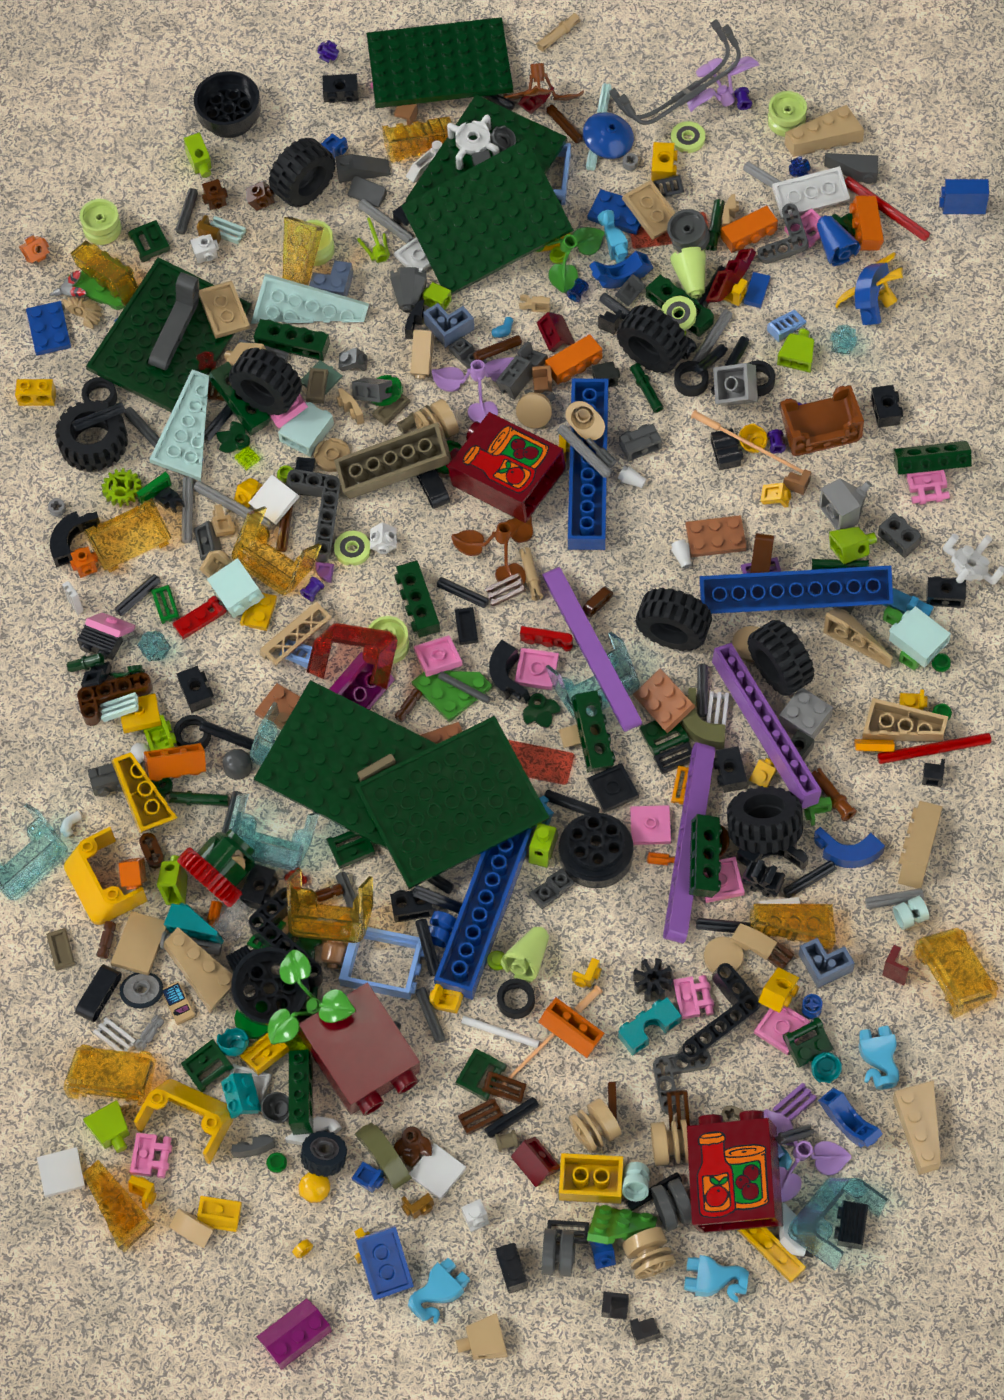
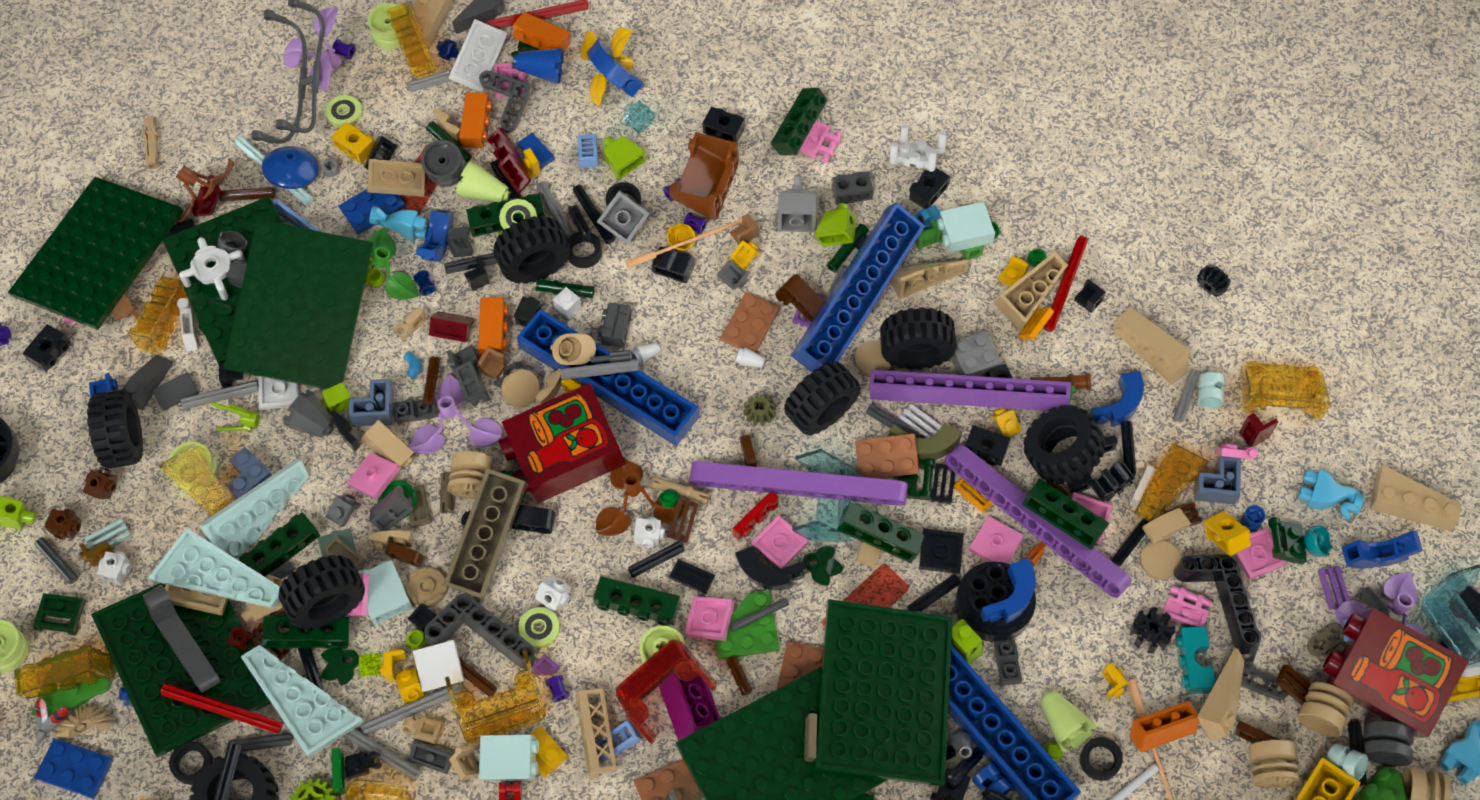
camera: 60 degrees left, 0 degrees up
(147, 384) = (222, 708): none -> red axle
(238, 303) = (207, 569): none -> light aqua wing
(254, 468) = (388, 667): none -> yellow bracket
(345, 422) = (404, 554): none -> reddish brown beam
(392, 362) = (373, 476): none -> bright pink plate
(456, 890) = (962, 743): none -> light grey cone
(478, 571) = (648, 532): none -> white brick
(516, 567) = (669, 498): none -> green plate
(546, 433) = (553, 385): none -> tan slope
(600, 854) = (1023, 582): none -> blue arch
(619, 1058) = (1222, 703): none -> tan wedge
(632, 397) = (567, 304): none -> white brick
(634, 583) = (759, 415): none -> olive gear
(748, 496) = (733, 275): none -> dark grey bracket
(778, 136) = (411, 40): none -> clear yellow wedge
(859, 956) = (1232, 451): none -> bright pink plate

